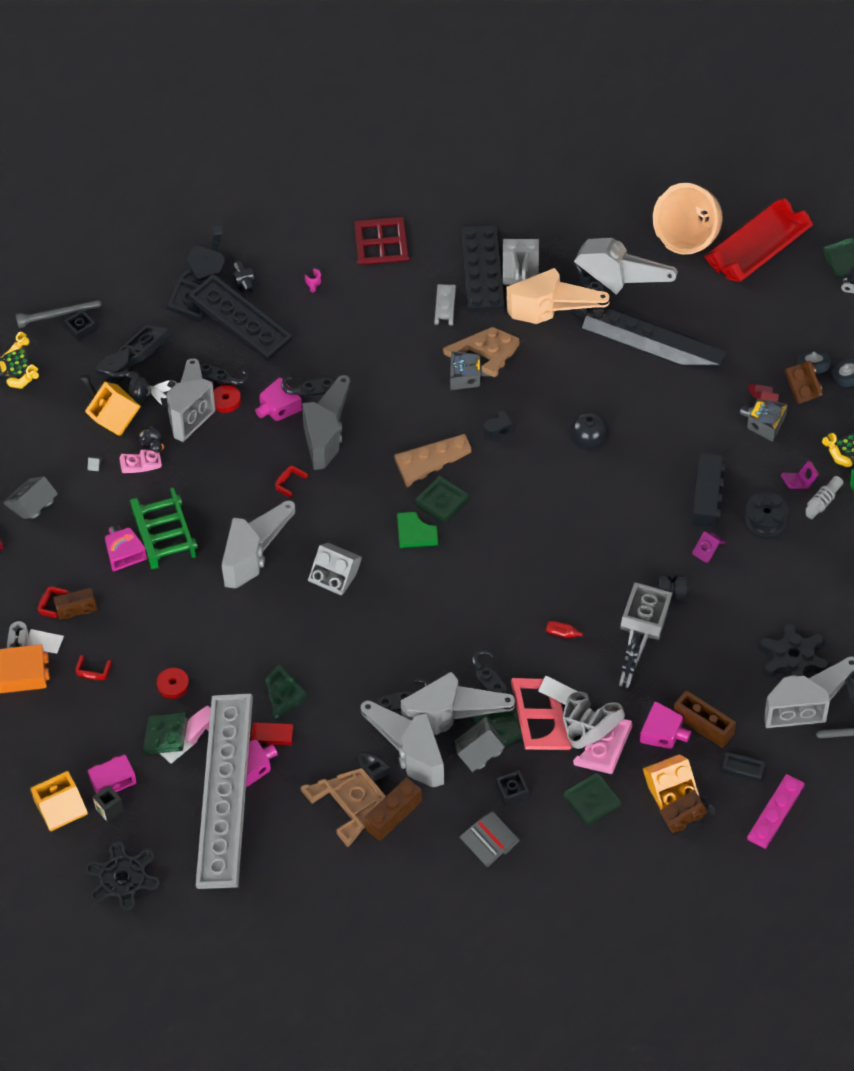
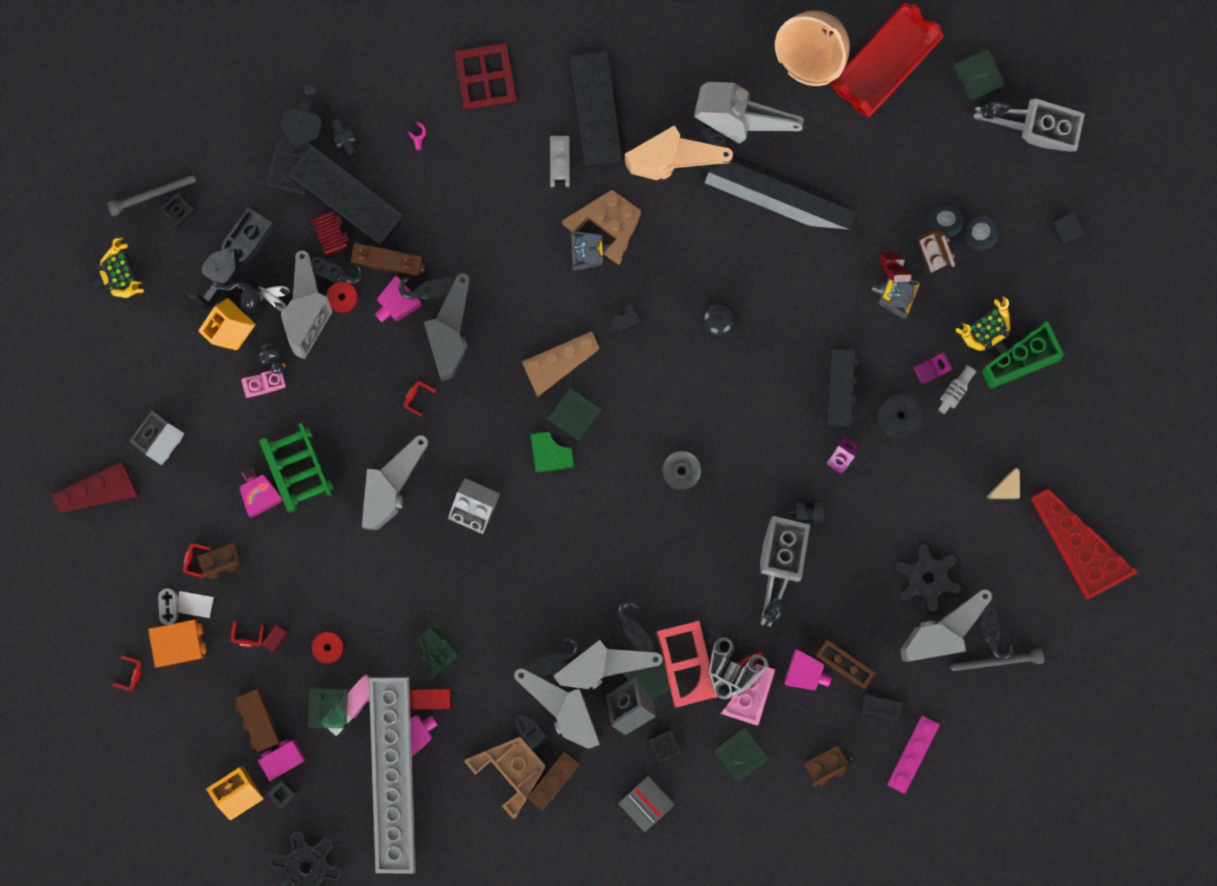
camera: 10 degrees left, 30 degrees up
(91, 738) = (257, 720): none -> reddish brown brick
(94, 463) = (216, 385): piece -> none
(121, 667) = (275, 638): none -> dark red piece
(221, 347) = (330, 233): none -> dark red brick
(270, 368) = (388, 260): none -> reddish brown brick
(520, 260) = (636, 103): light grey slope -> none
(545, 542) = (681, 460): none -> dark grey dish
(555, 689) = (701, 635): white sticker -> none
(562, 630) = (703, 563): red piece -> none
(670, 780) = (814, 732): light orange slope -> none

